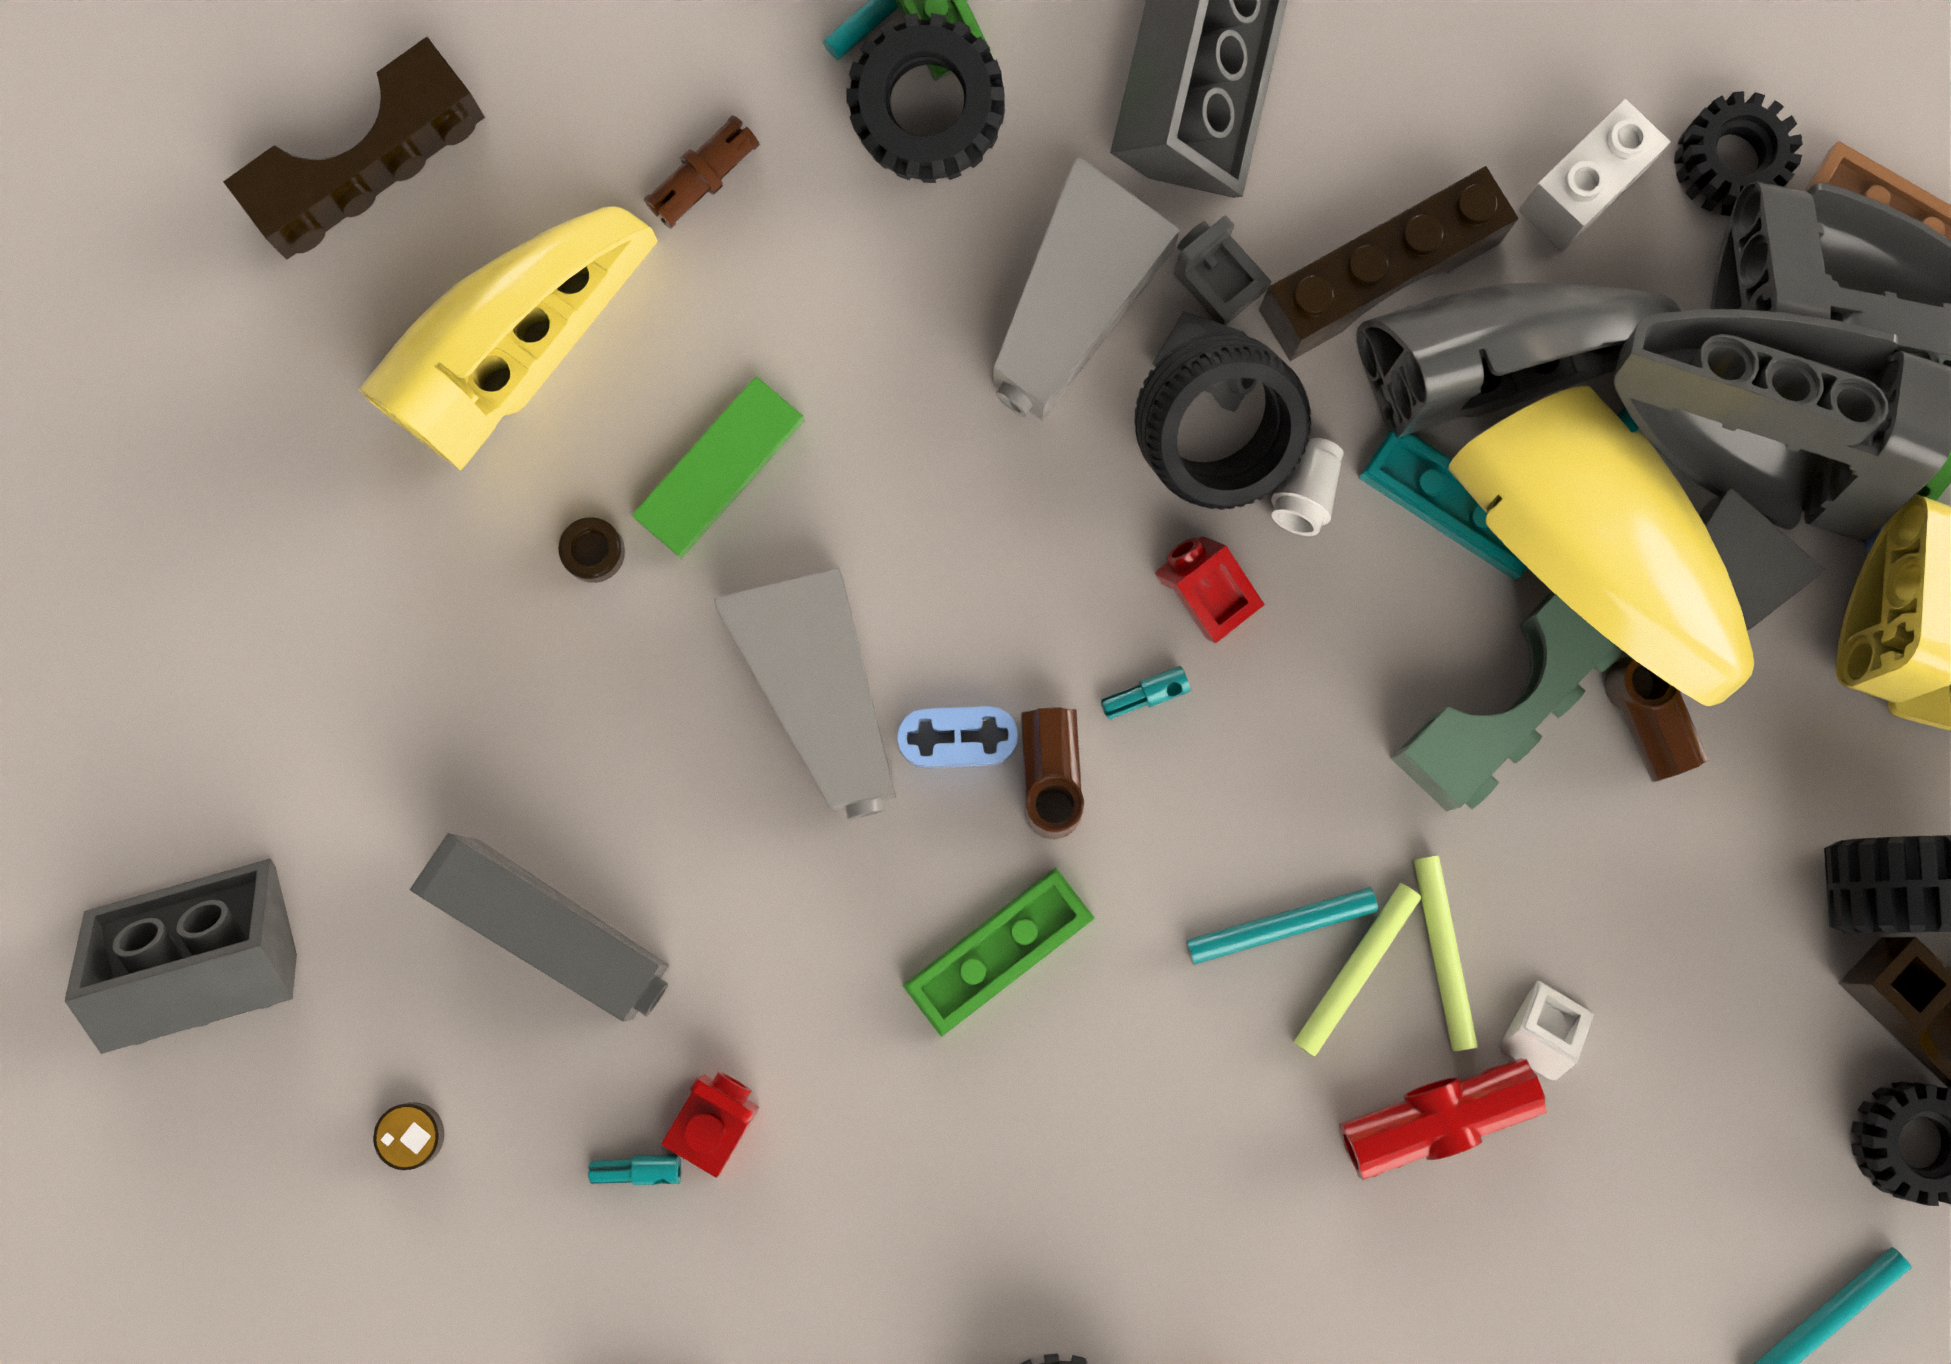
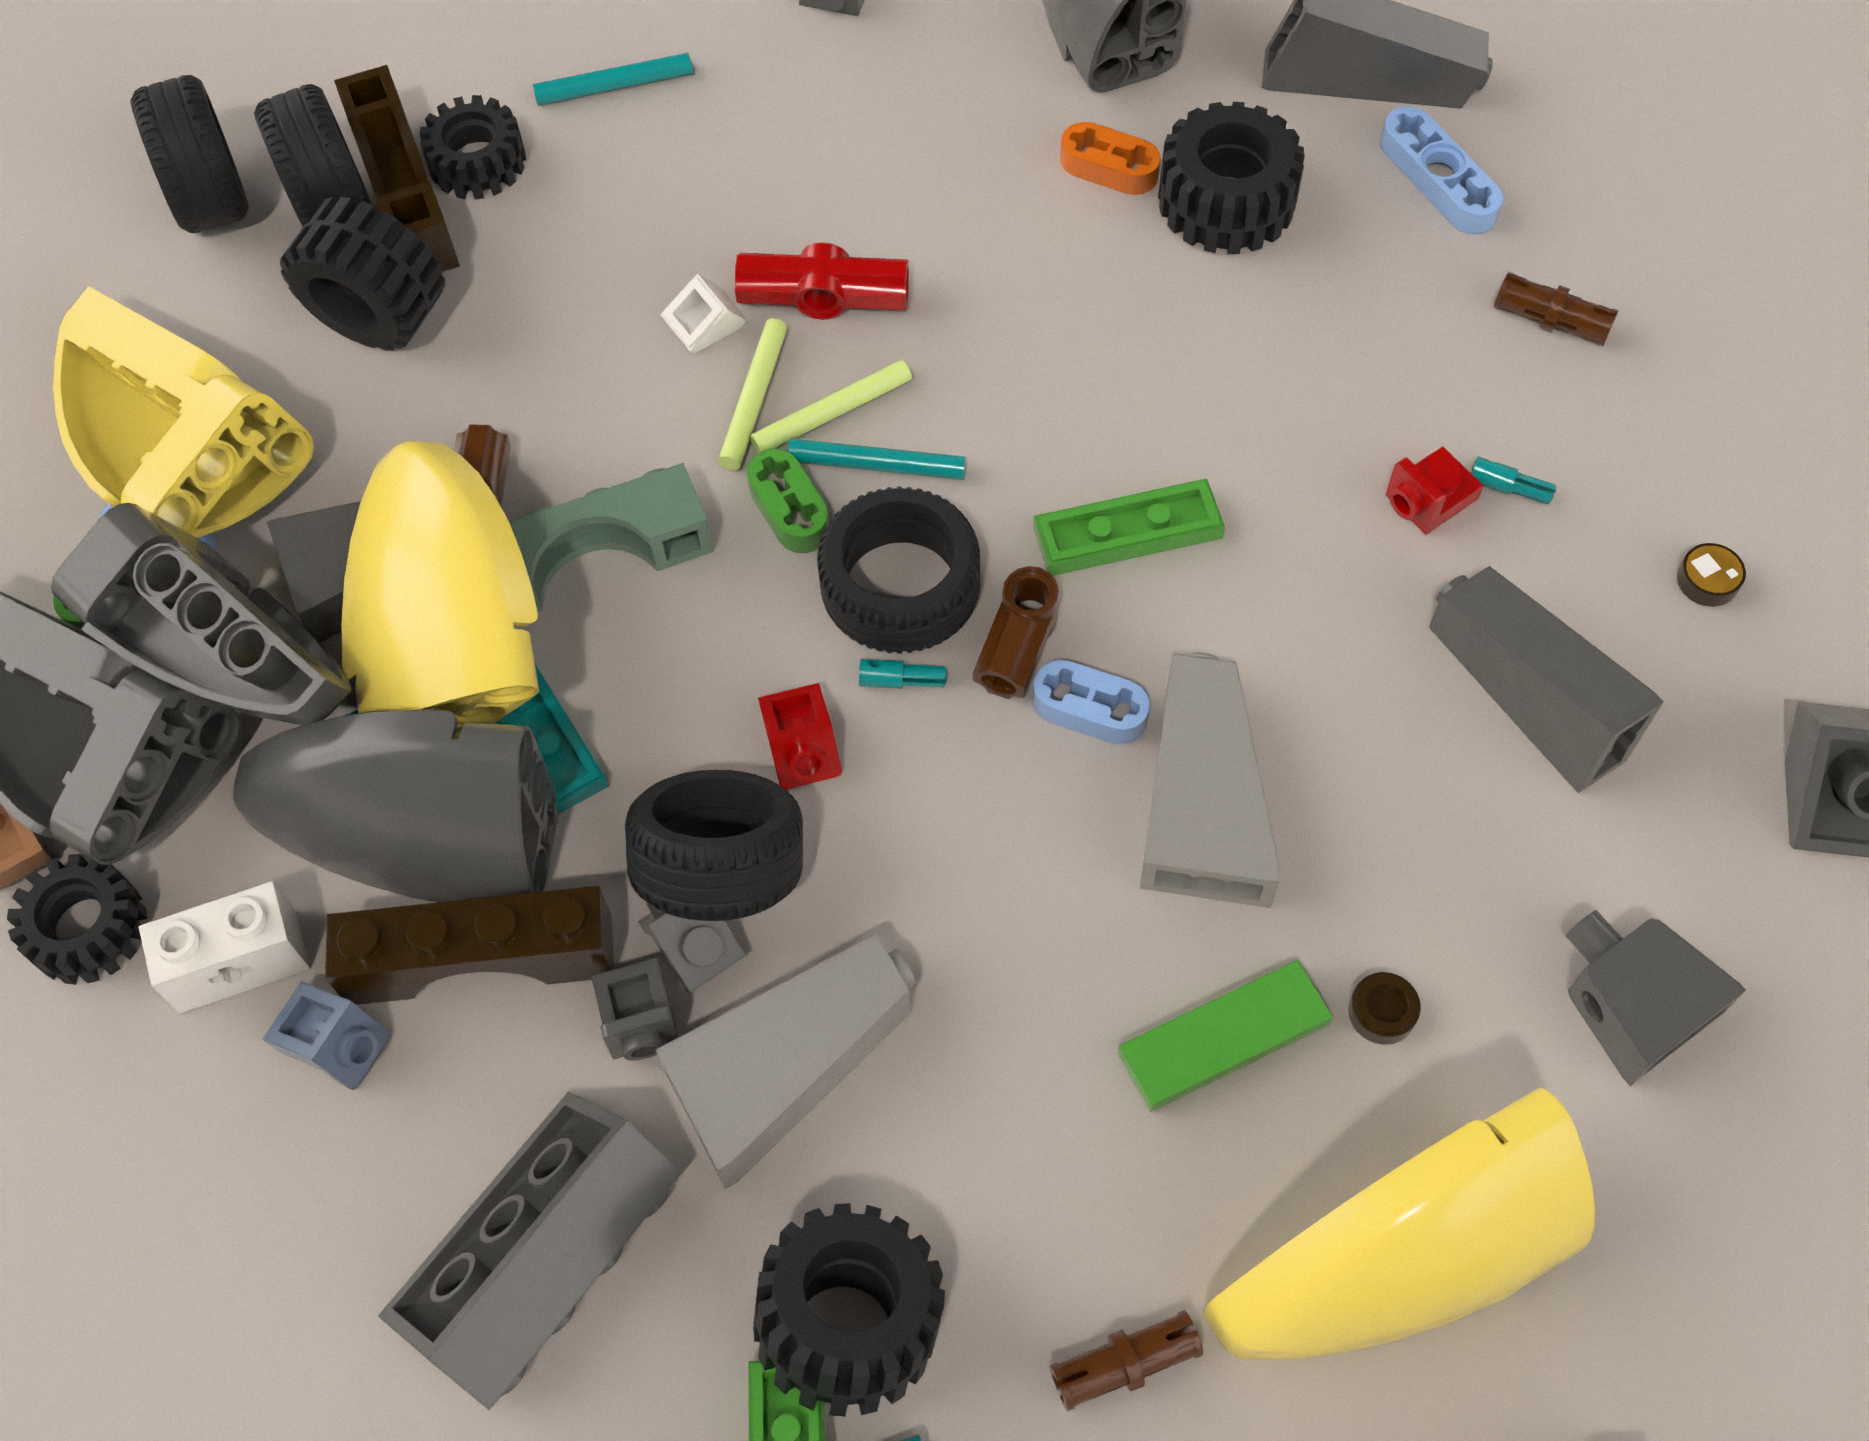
camera: 155 degrees left, 20 degrees down
(368, 645) = (1645, 991): none -> dark grey torso
(1252, 752) = (890, 518): none -> black tyre
(1308, 495) = (660, 763): white cone -> none
(1355, 825) = (777, 506): none -> bright green beam
(1462, 143) = (328, 1034): none -> sand blue bracket

